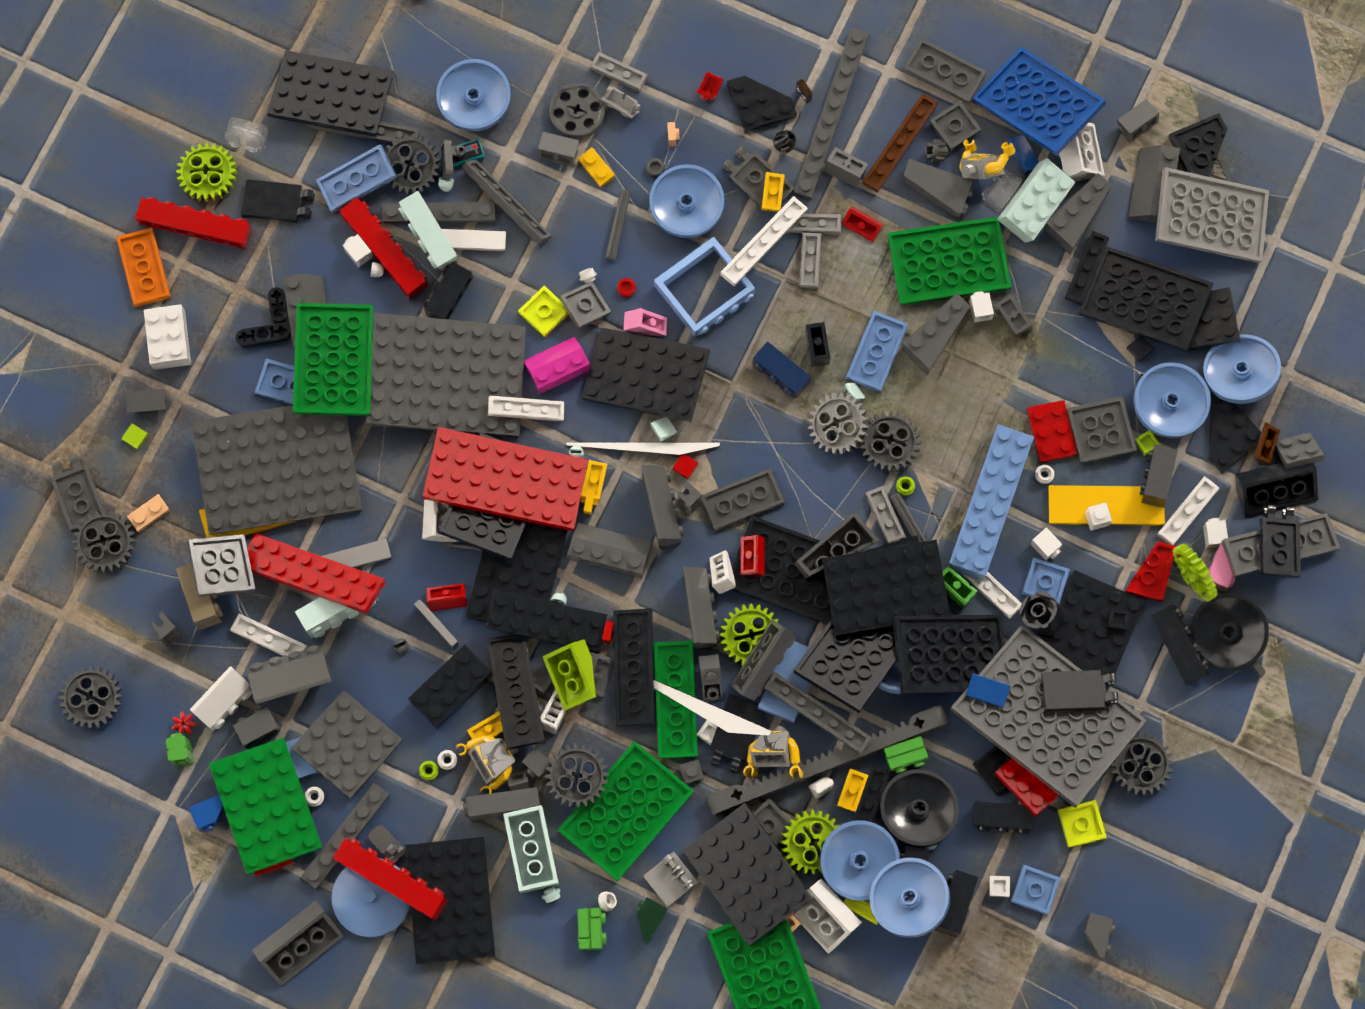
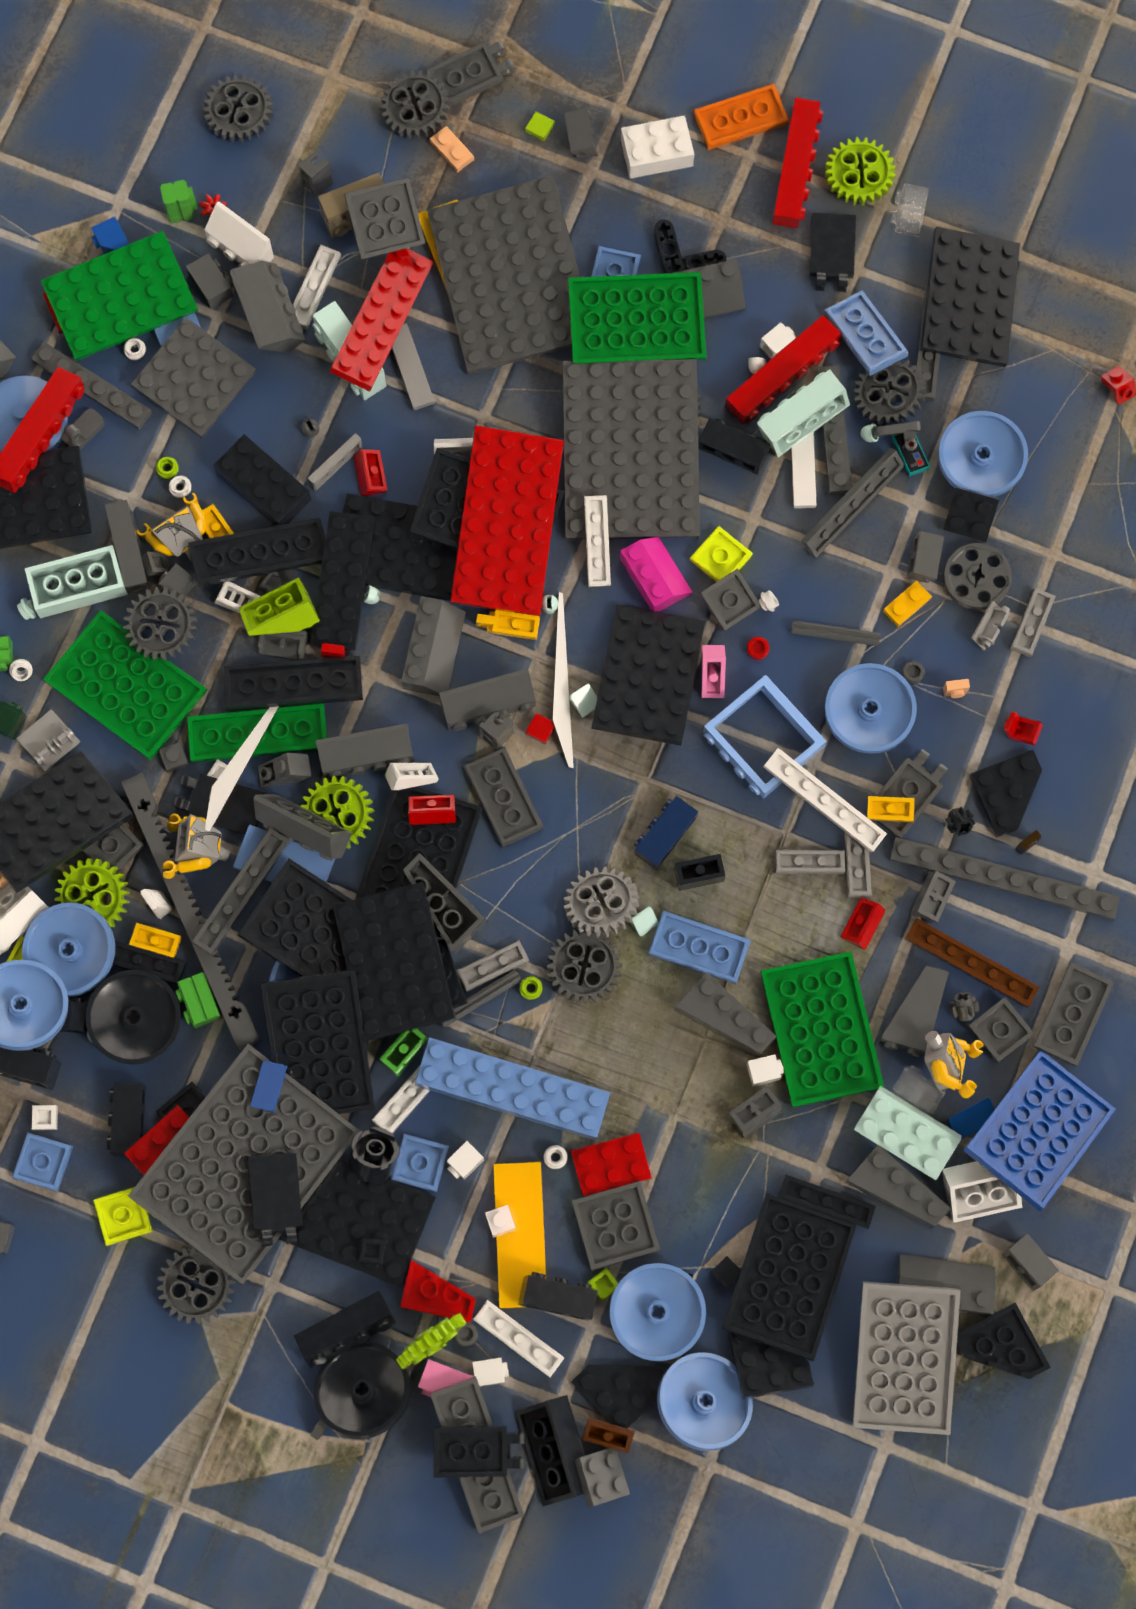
camera: 85 degrees right, 0 degrees up
(524, 109) = (971, 513): none -> black plate

